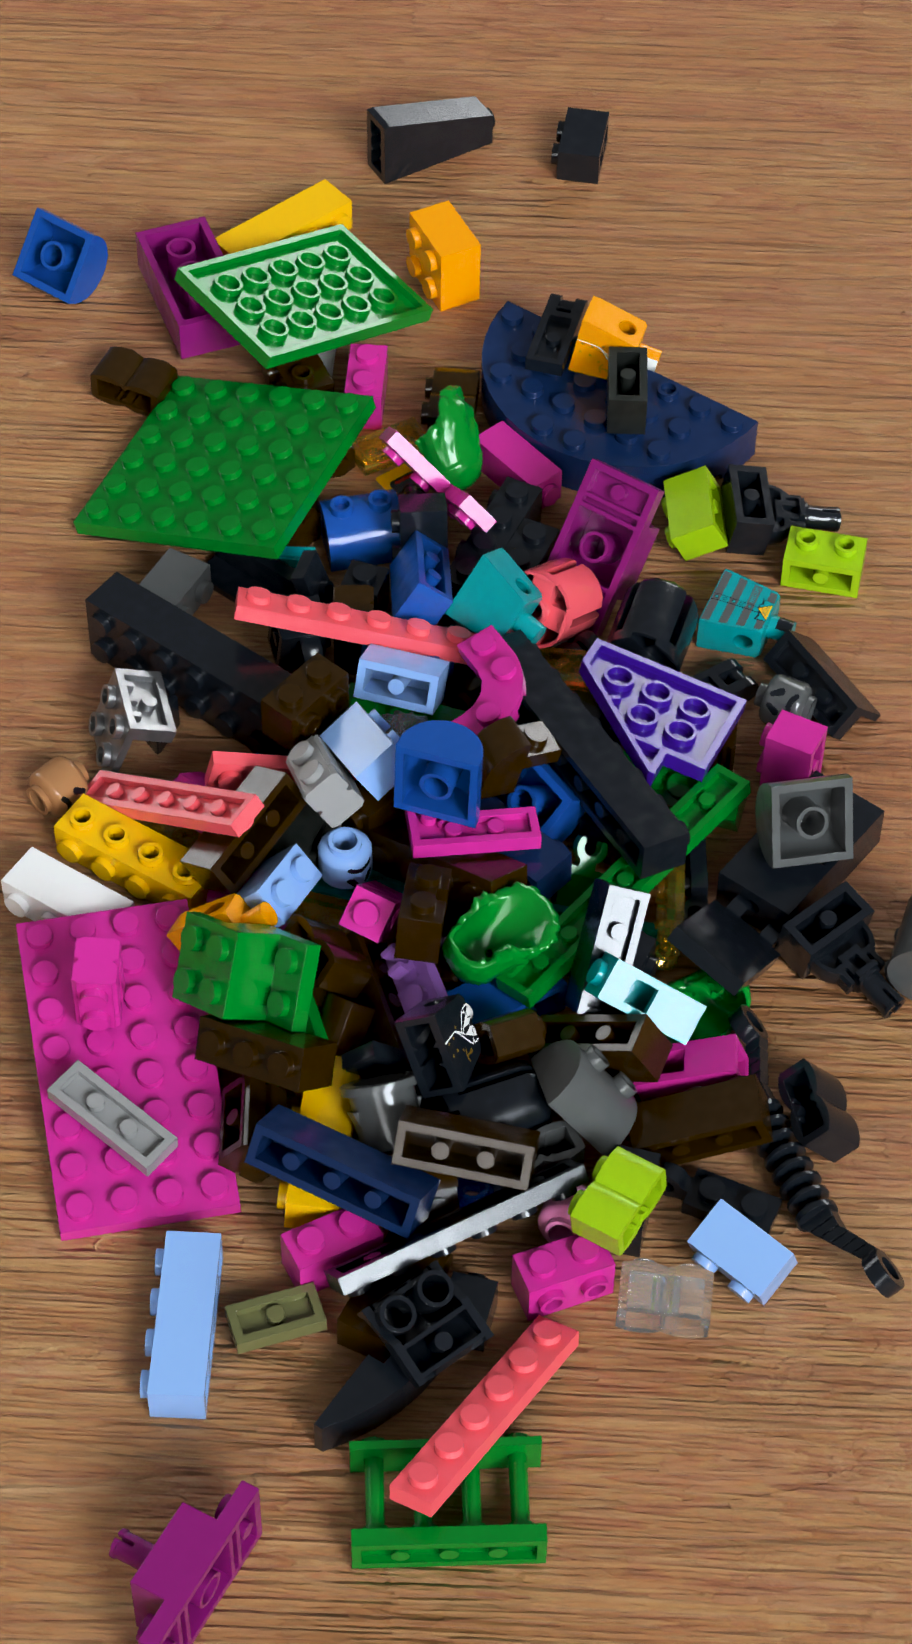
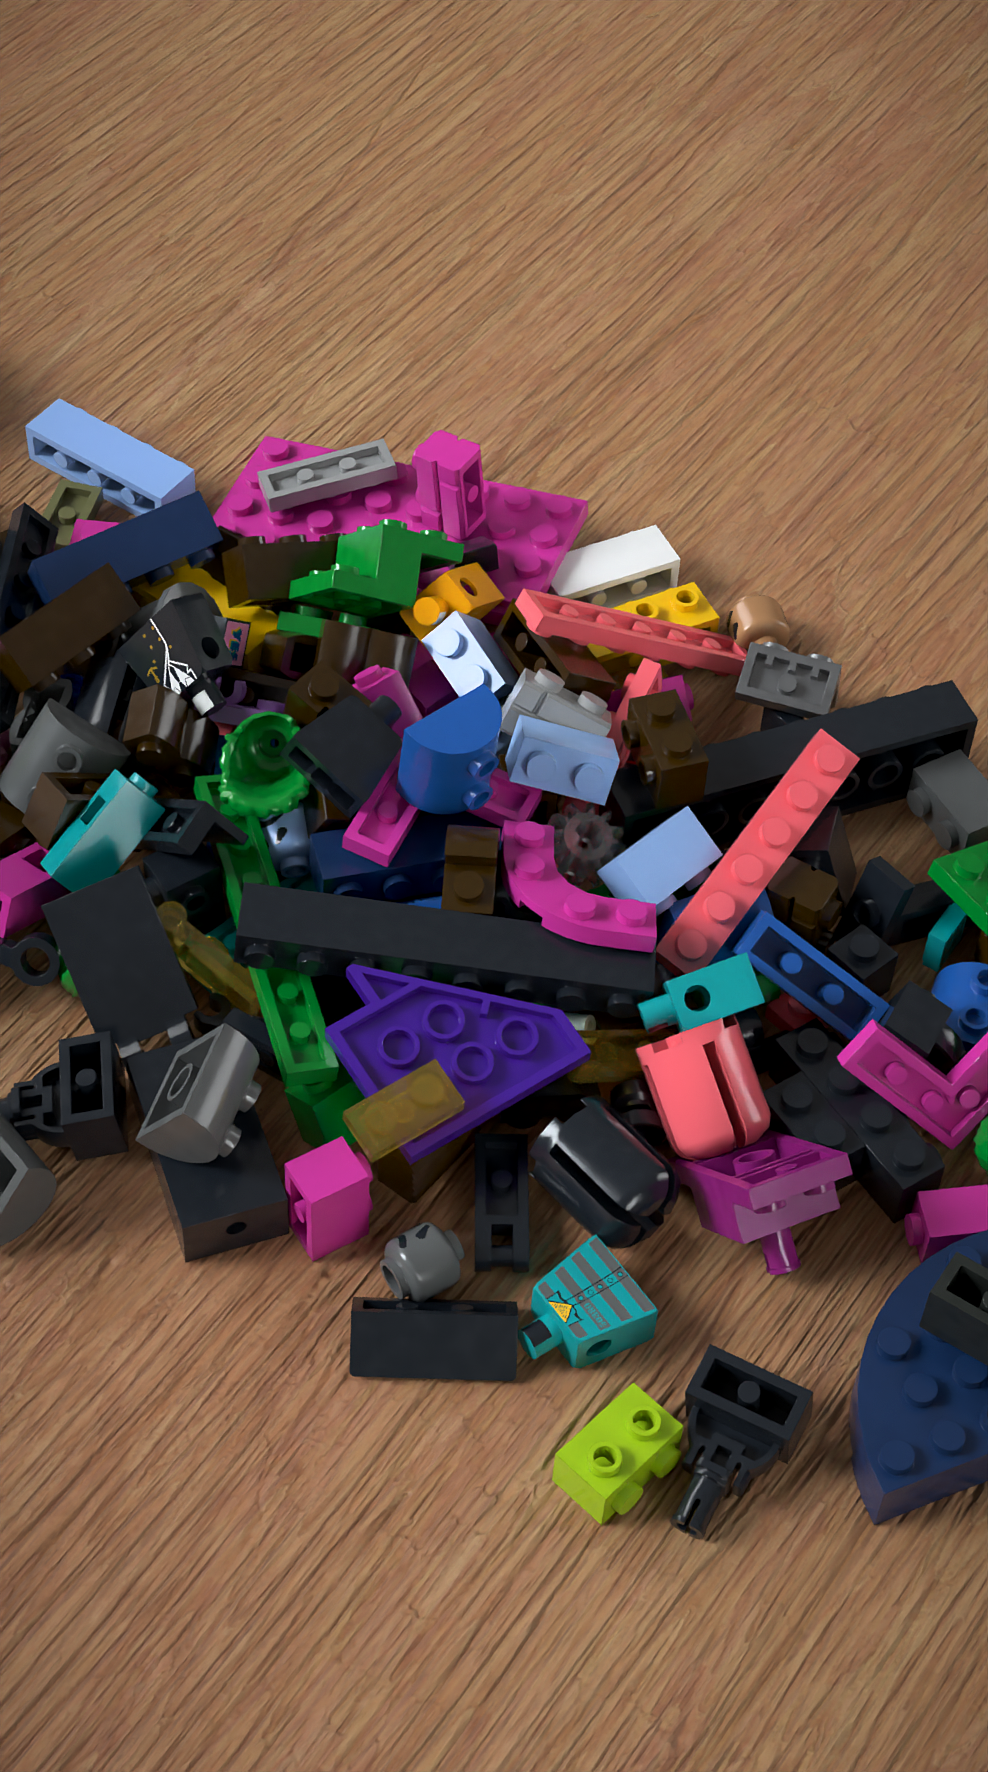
camera: 120 degrees right, 0 degrees up
(151, 955) = (481, 551): none -> black slope
(474, 852) = (347, 750): none -> black torso
(694, 513) = (782, 1341): lime brick -> none
(725, 706) = (403, 1110): none -> clear yellow plate

